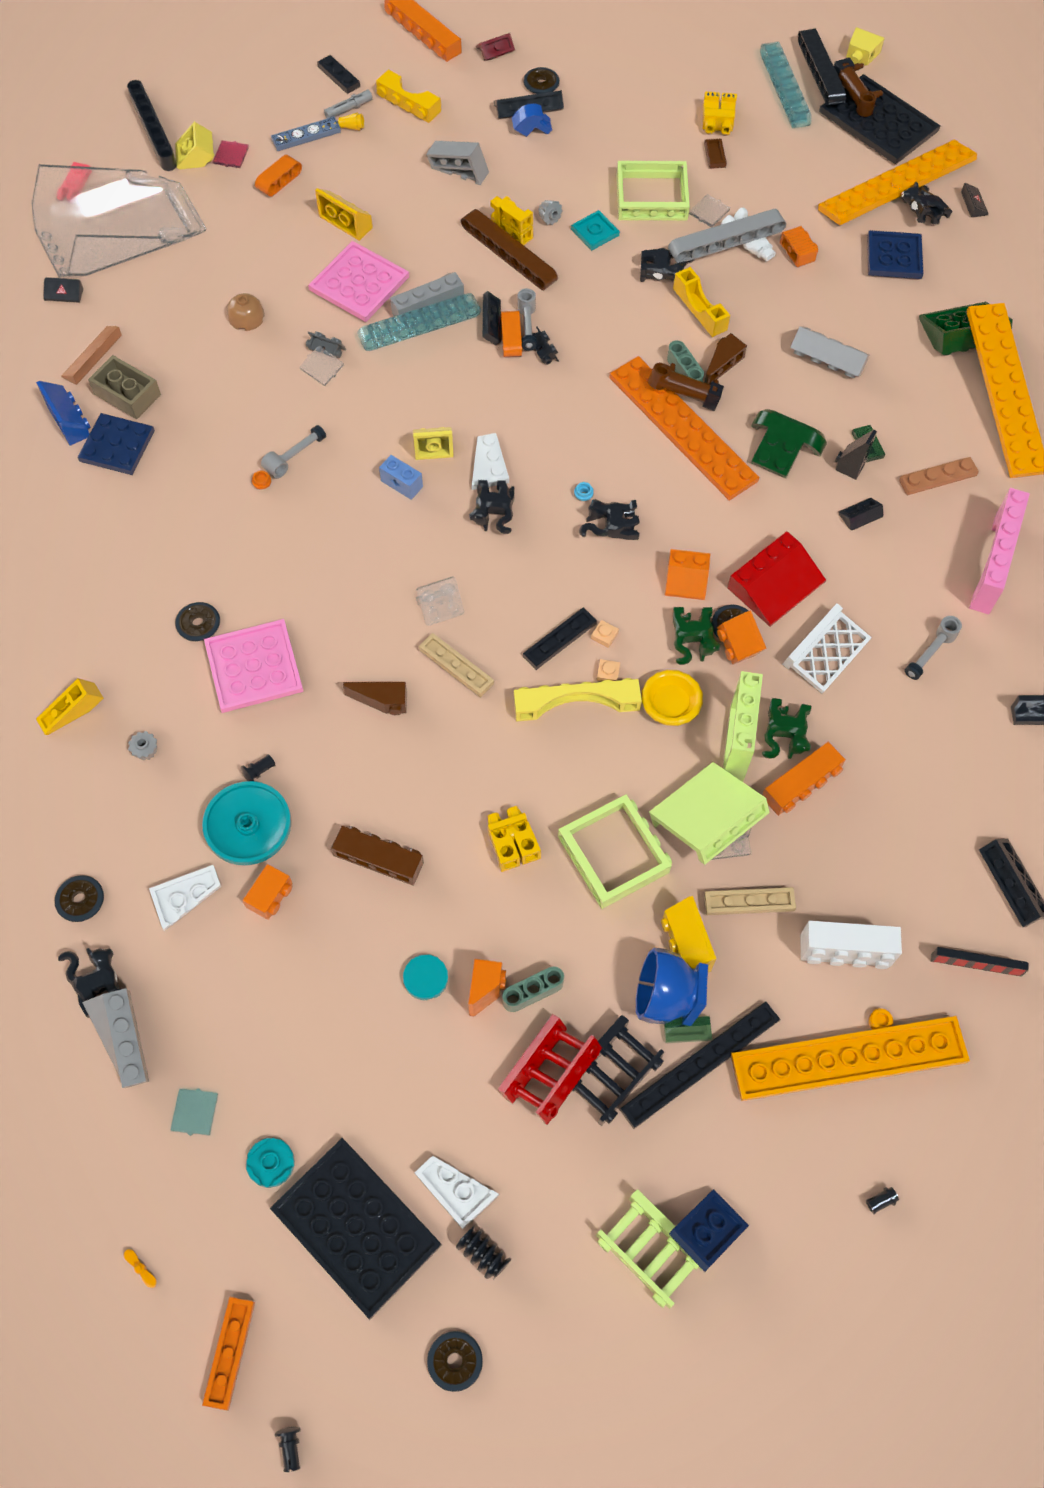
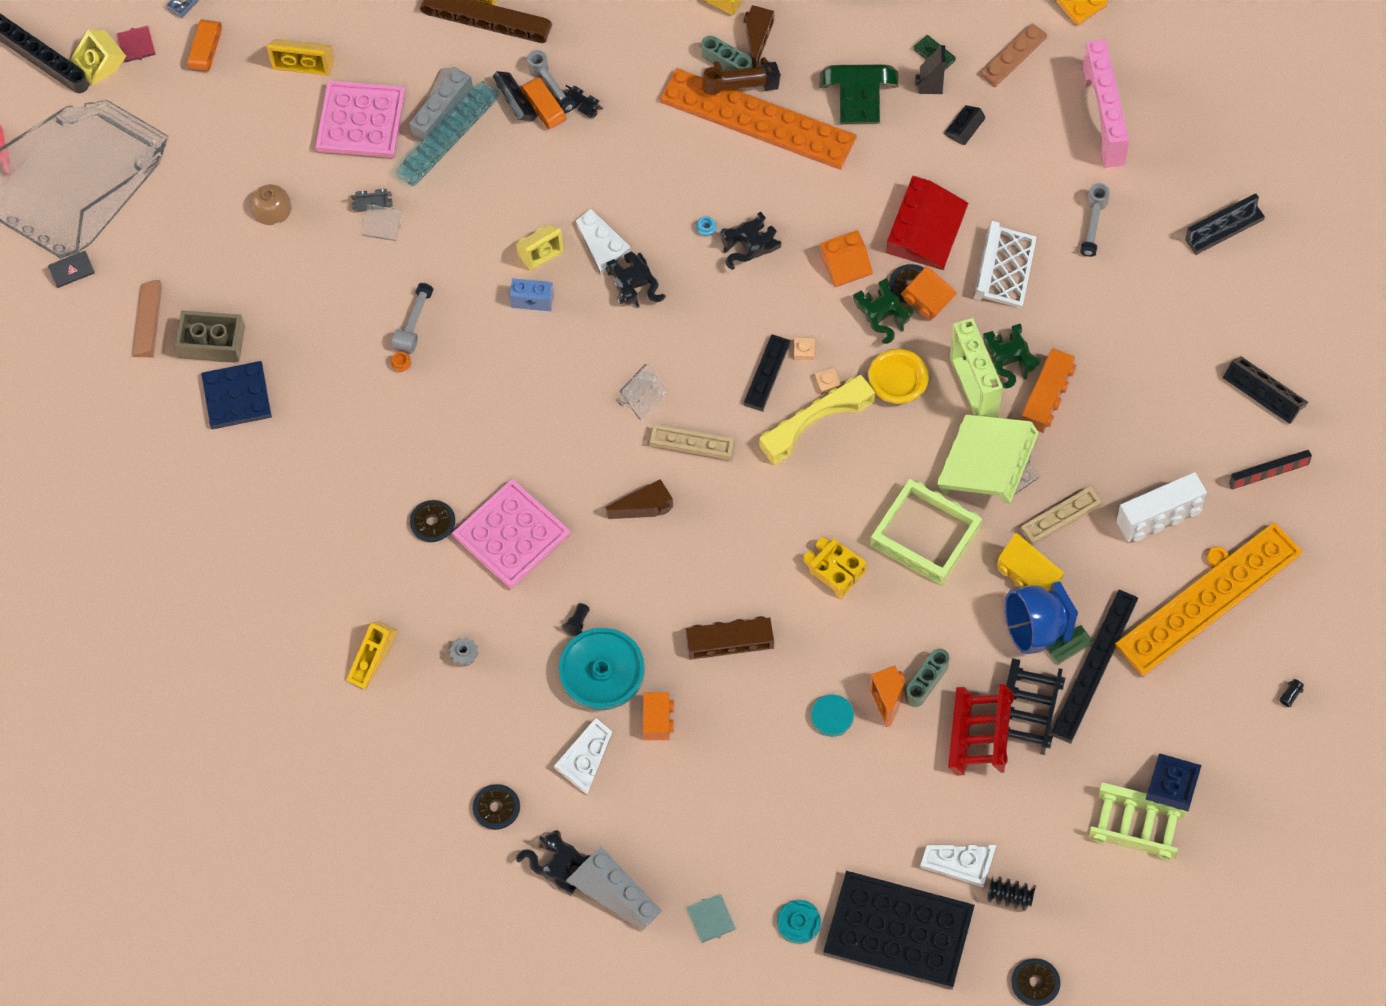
camera: 25 degrees left, 0 degrees up
(65, 412) = (169, 390): blue slope -> none

